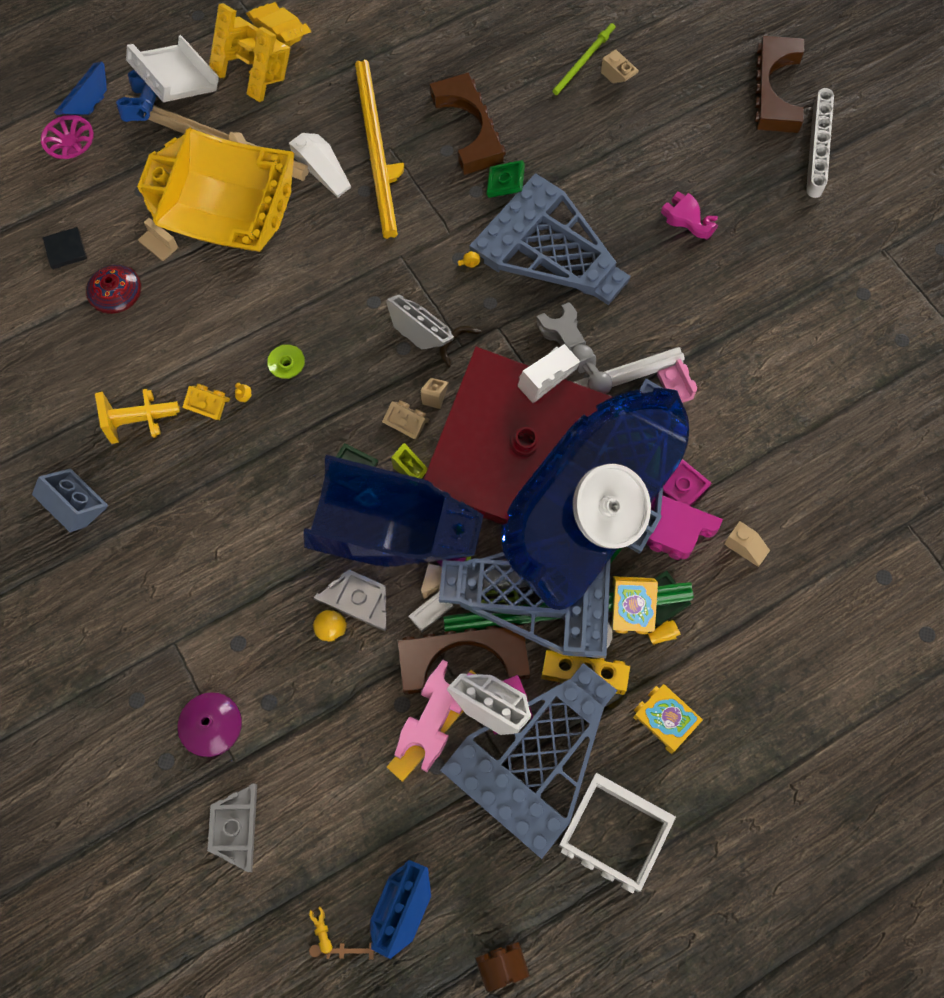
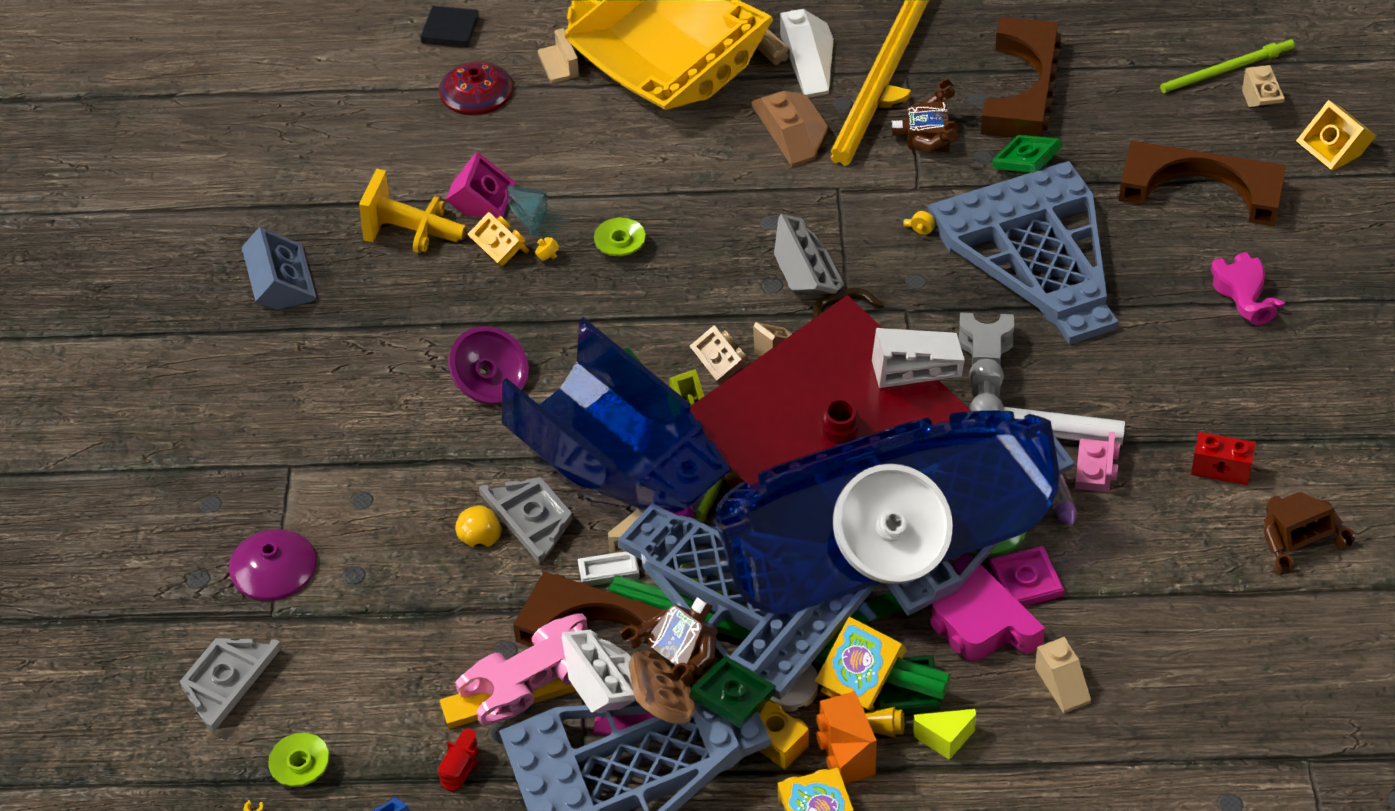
camera: 30 degrees right, 20 degrees down
(170, 368) = (480, 188): none -> dark pink slope
(210, 366) = (528, 206): none -> clear light blue slope
(272, 498) = (496, 354): none -> magenta dish
(313, 865) = (296, 750): none -> lime dish
(344, 222) = (792, 124): none -> medium nougat wedge
(427, 806) = (459, 760): none -> red arm
(431, 184) = (928, 122): none -> reddish brown torso
(524, 651) = (679, 636): none -> reddish brown torso
(535, 696) = (657, 689): none -> medium nougat tile
(580, 674) = (732, 691): none -> dark green plate
(652, 137) = (1254, 180): none -> reddish brown arch
(656, 659) = (847, 737): none -> orange slope
(678, 83) = (1335, 136): none -> yellow slope
(705, 620) = (945, 730): none -> neon yellow slope
(748, 344) = (1223, 458): none -> red brick
(816, 371) = (1298, 522): none -> reddish brown torso

